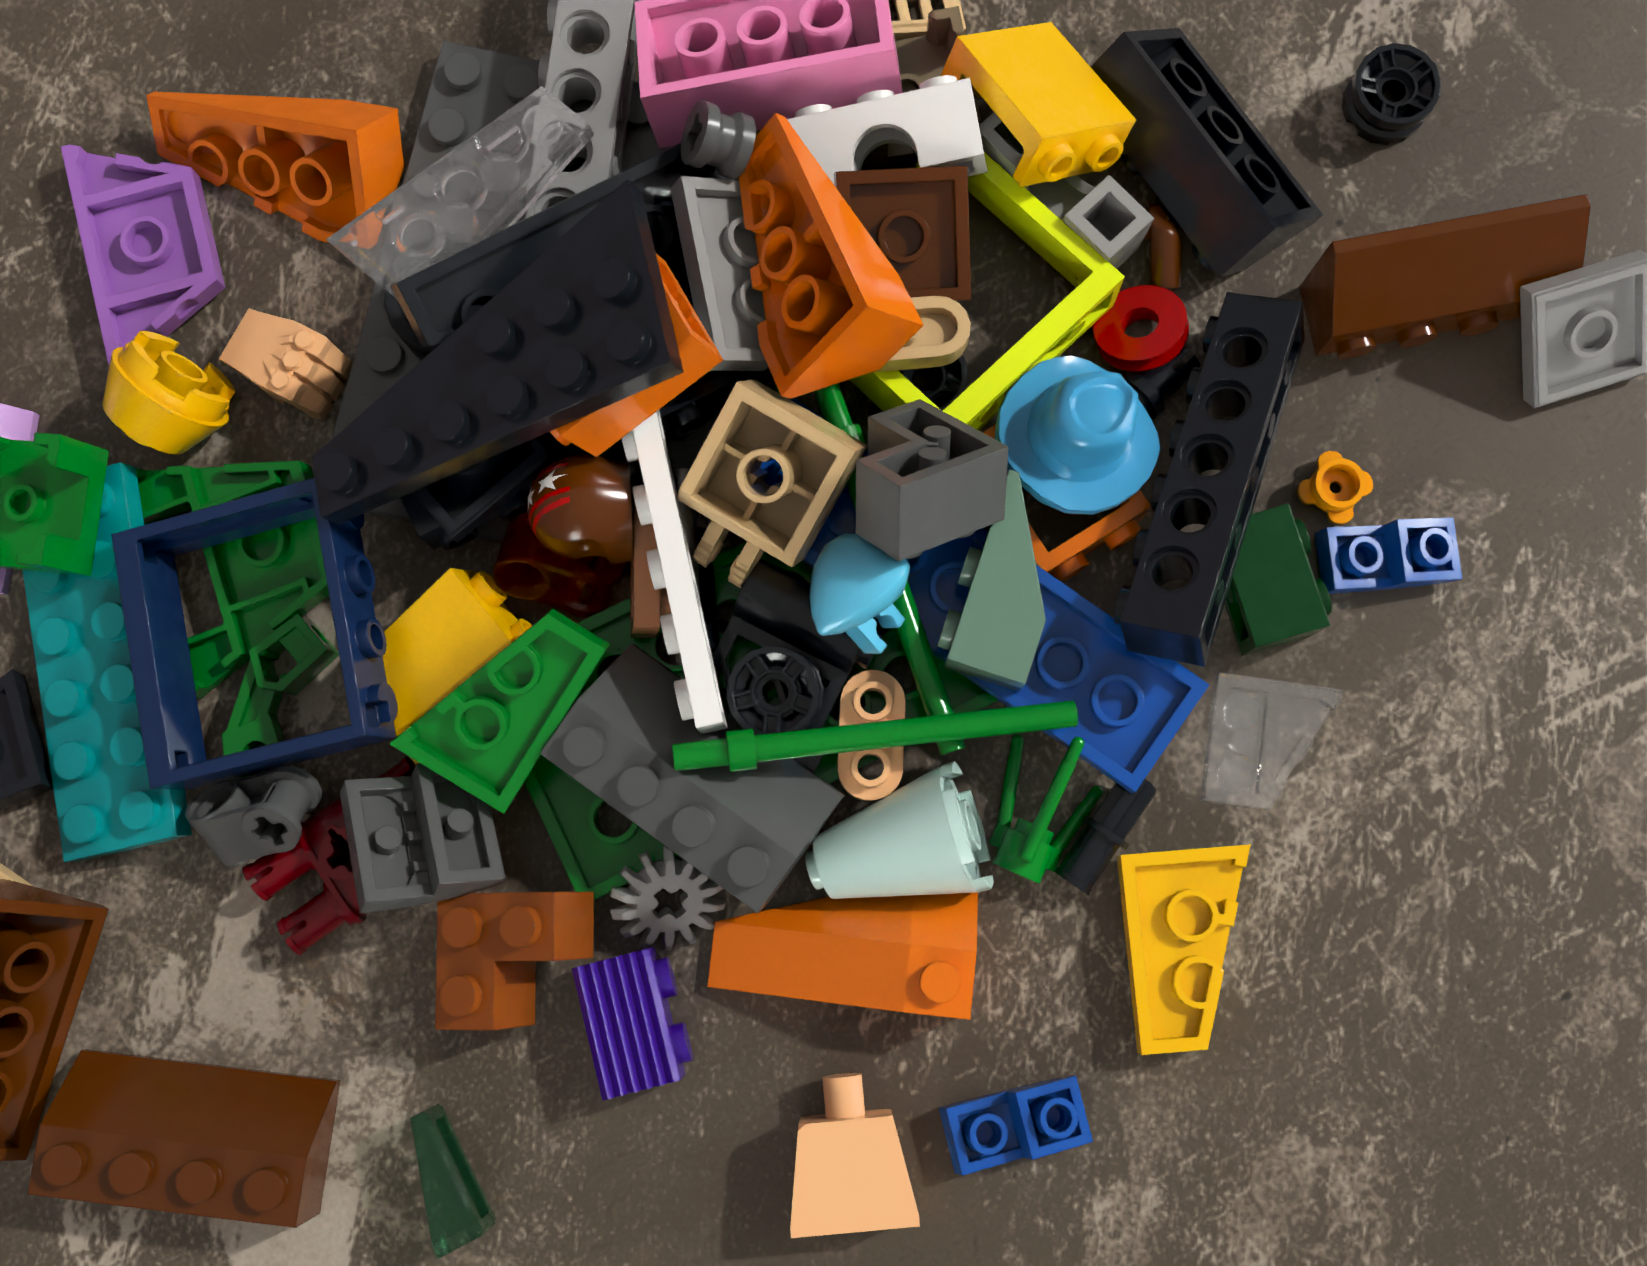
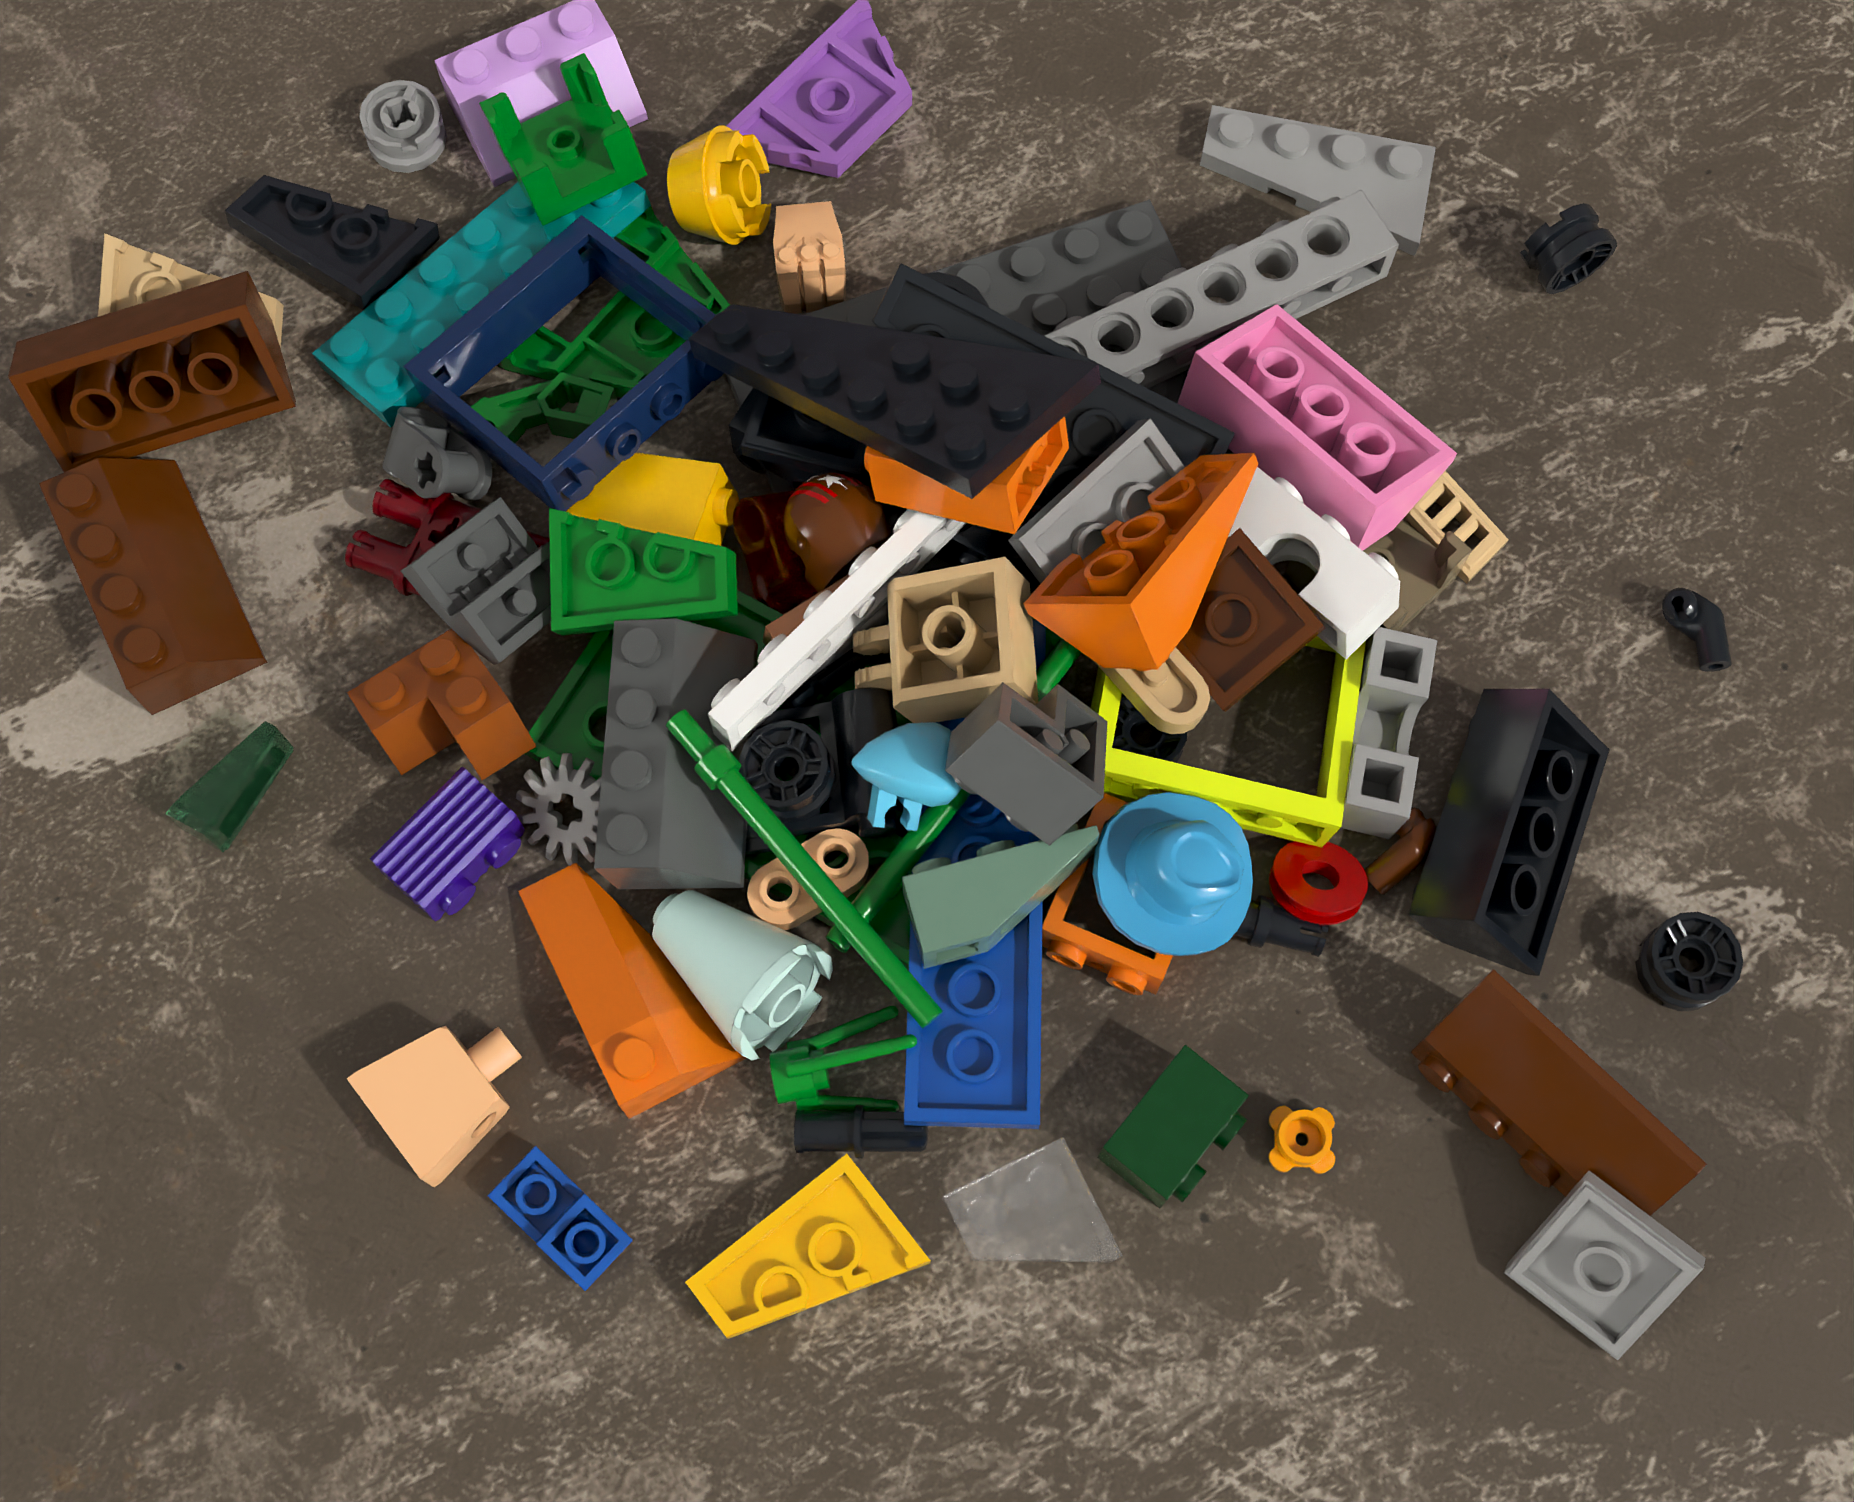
camera: 50 degrees right, 10 degrees down
(290, 154) = (980, 163): orange wedge -> none
(466, 192) = (1031, 282): clear wing -> none
(718, 139) = (1202, 428): dark grey wheel -> none
(1045, 100) = (1441, 665): yellow panel -> none
(1185, 620) = (1222, 1012): black brick -> none
(1388, 555) = (1275, 1226): blue slope -> none

